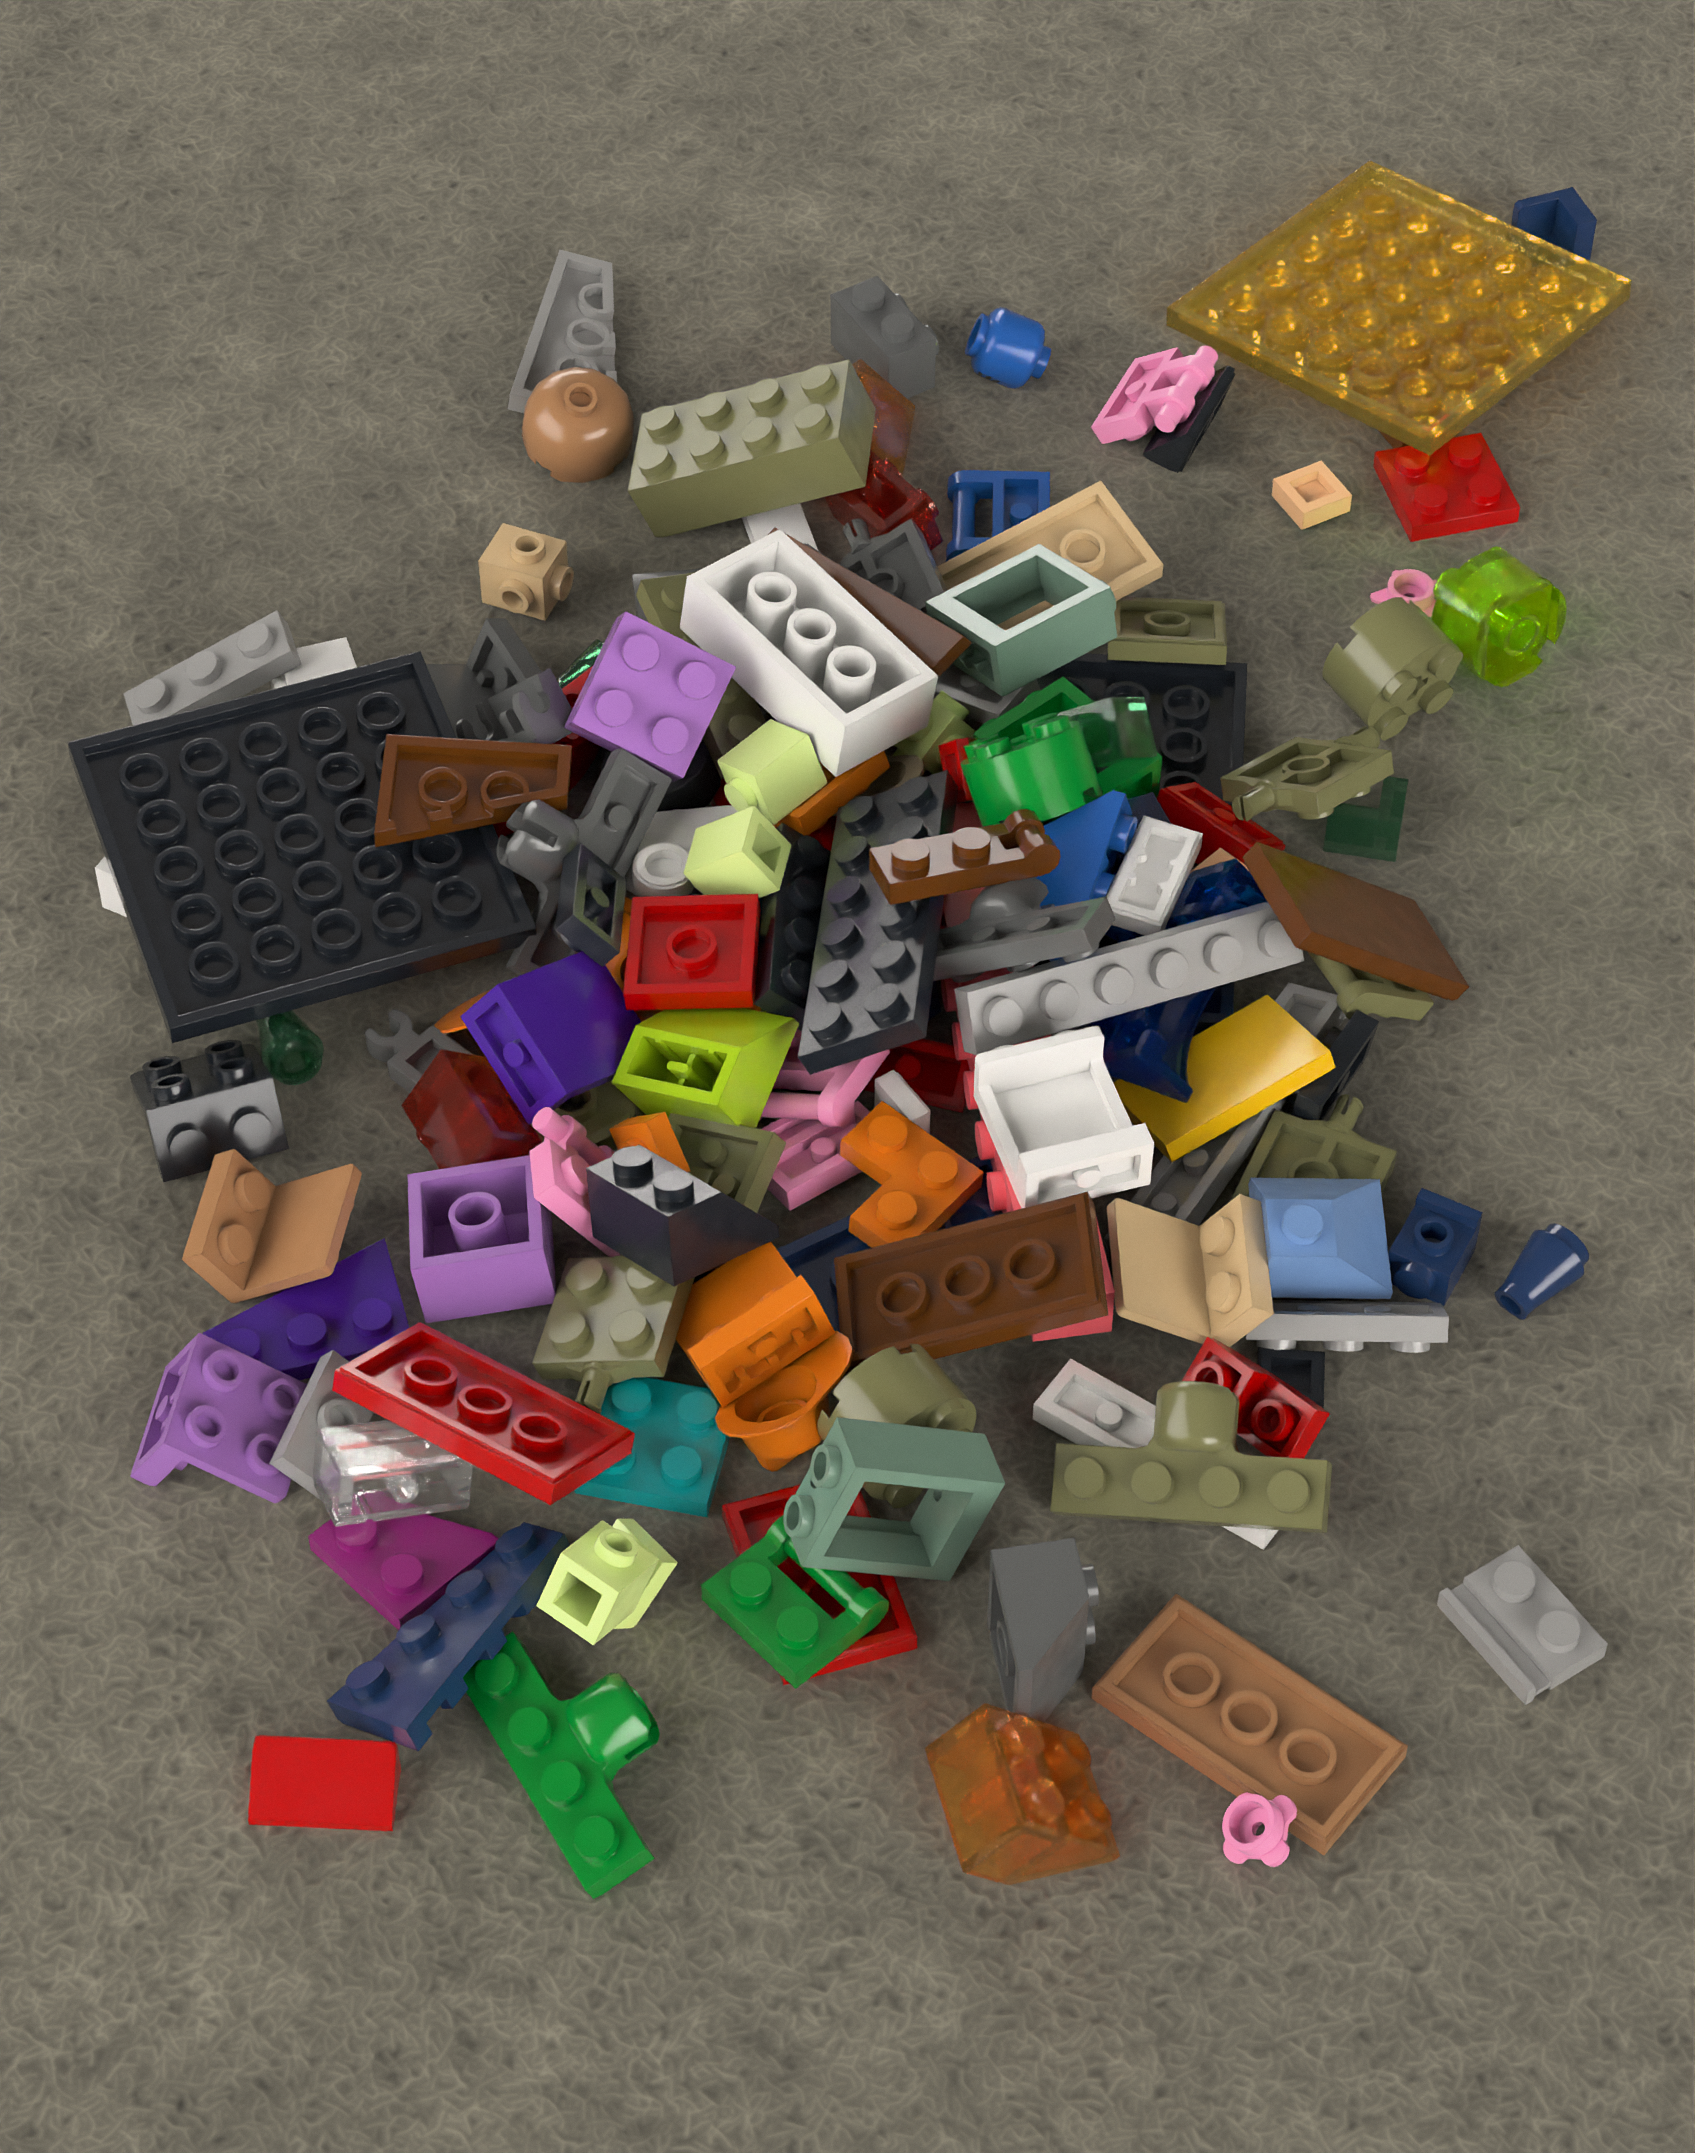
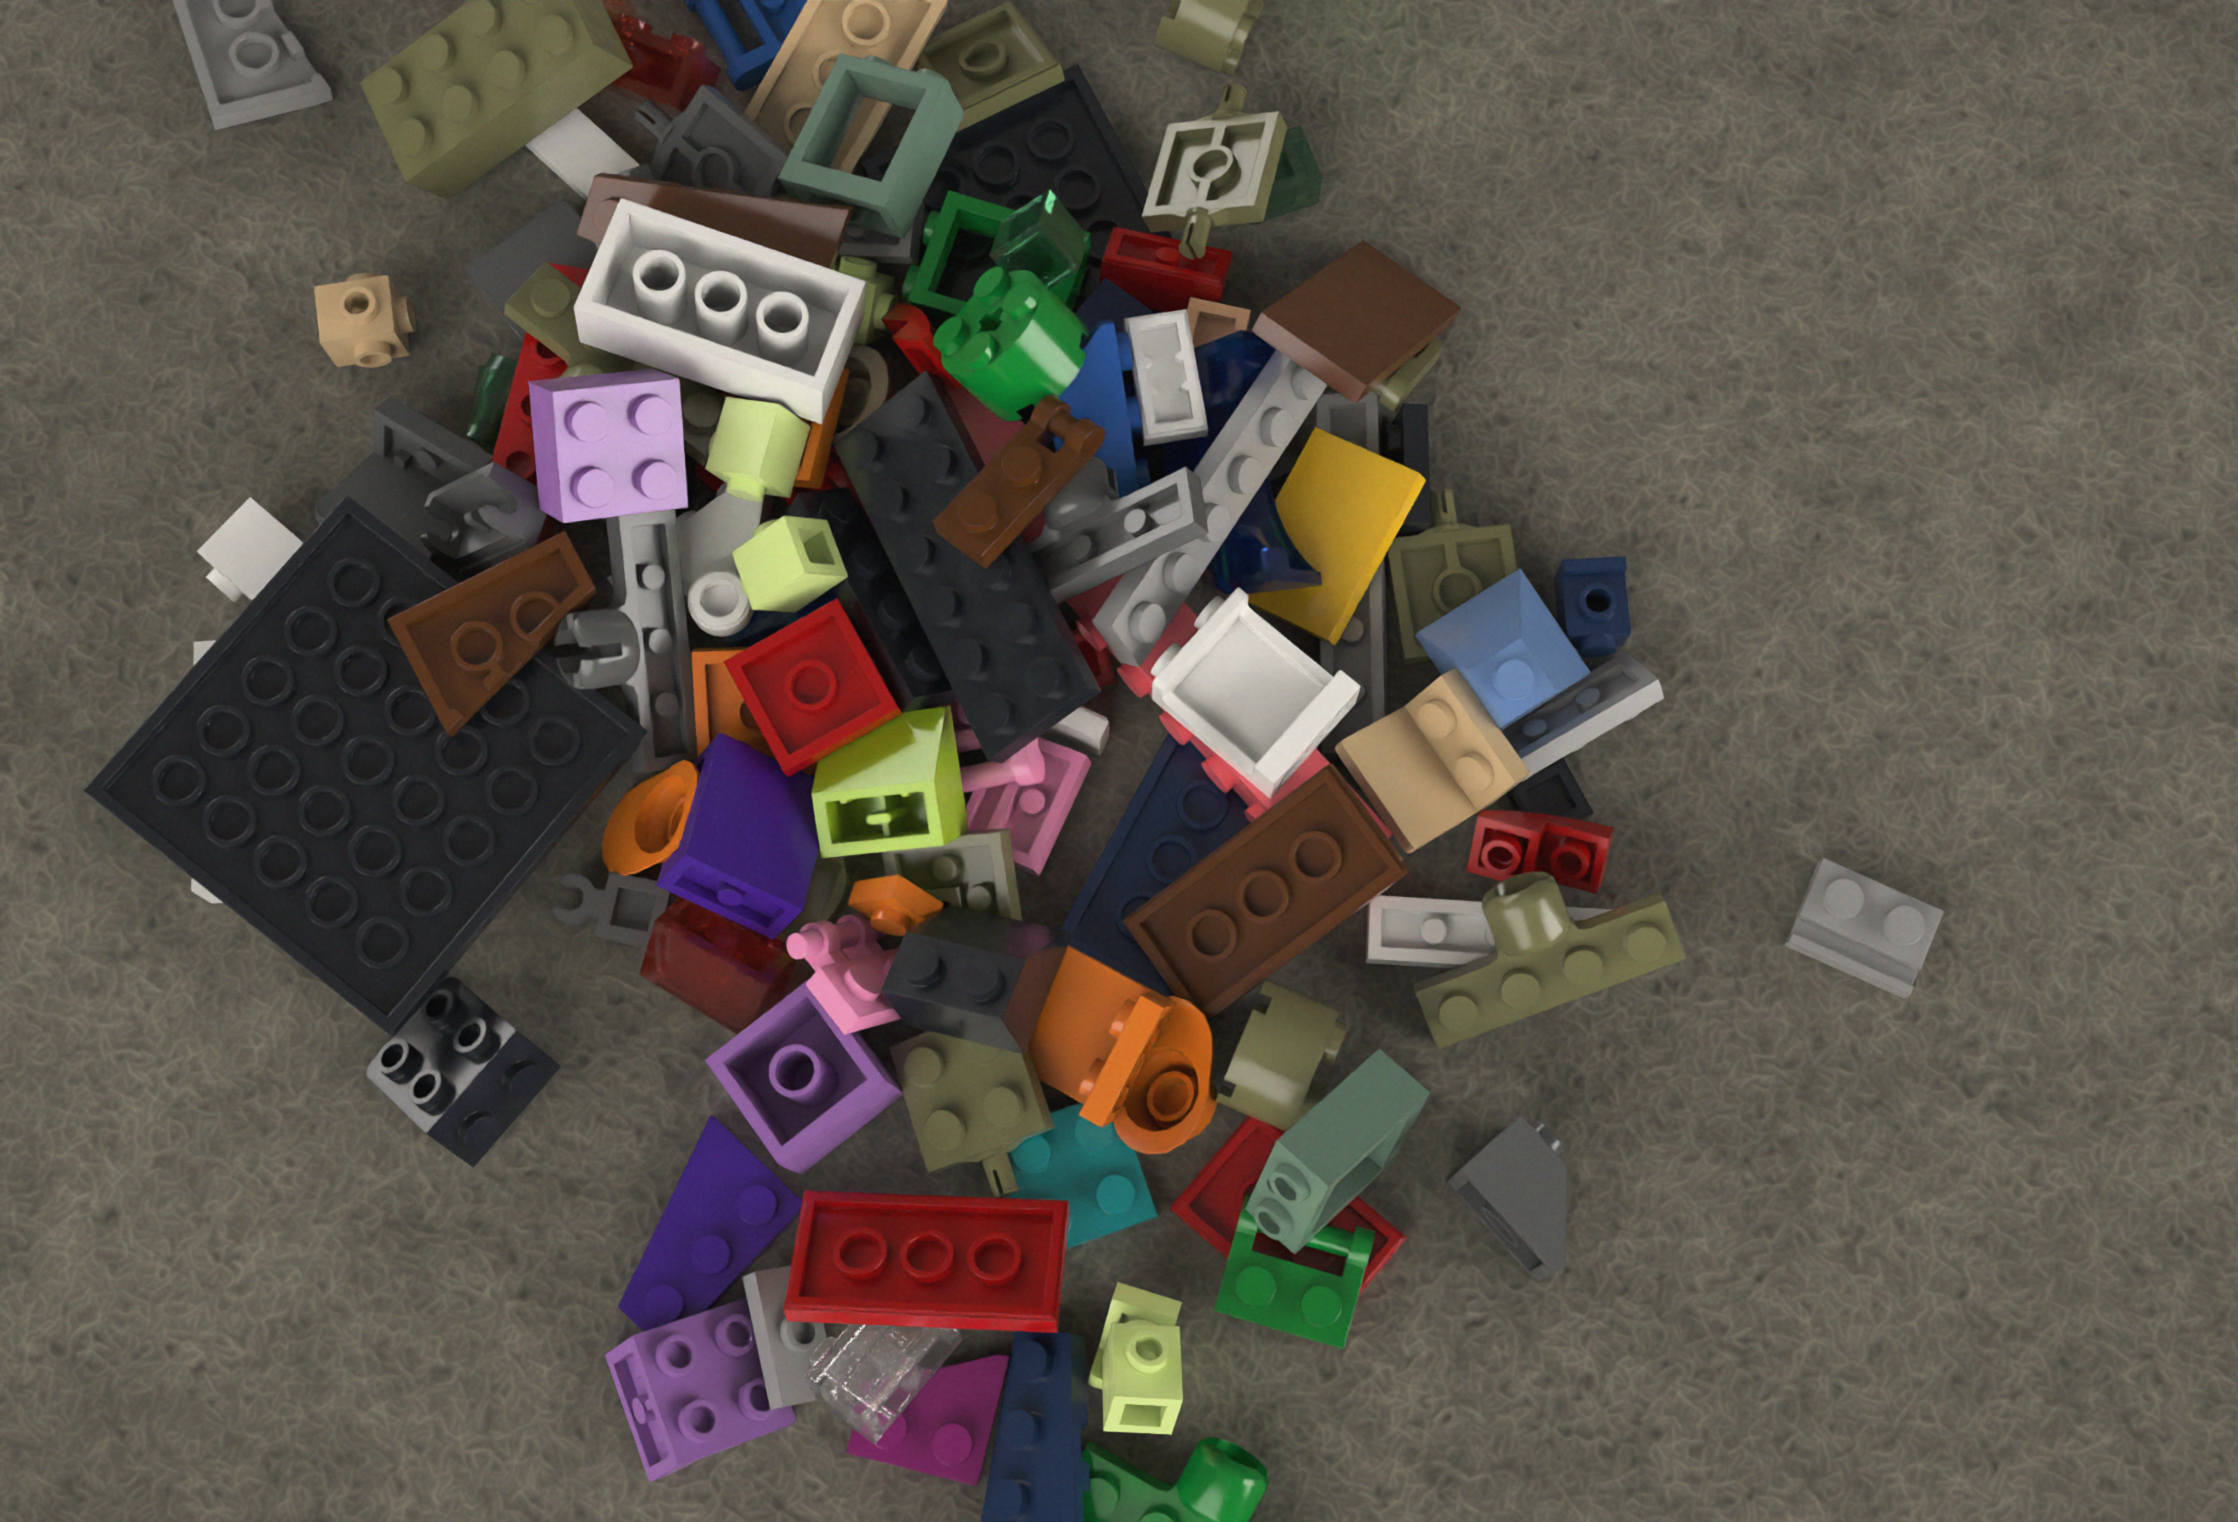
camera: 30 degrees left, 25 degrees up
(218, 672) = (151, 608): light grey plate -> none
(268, 1236) = (612, 1173): medium nougat bracket -> none
(289, 1048) = (496, 968): clear green cone -> none
(578, 425) = (300, 120): medium nougat cylinder -> none
(591, 905) = (694, 695): black plate -> none
(918, 1177) = (1144, 791): orange plate -> none
(1019, 1797) = (1586, 1346): clear orange slope -> none
(1243, 1820) = (1776, 1270): bright pink plate -> none
(1249, 1721) = (1709, 1151): medium nougat tile -> none
(1544, 1268) = (1690, 571): dark blue cone -> none

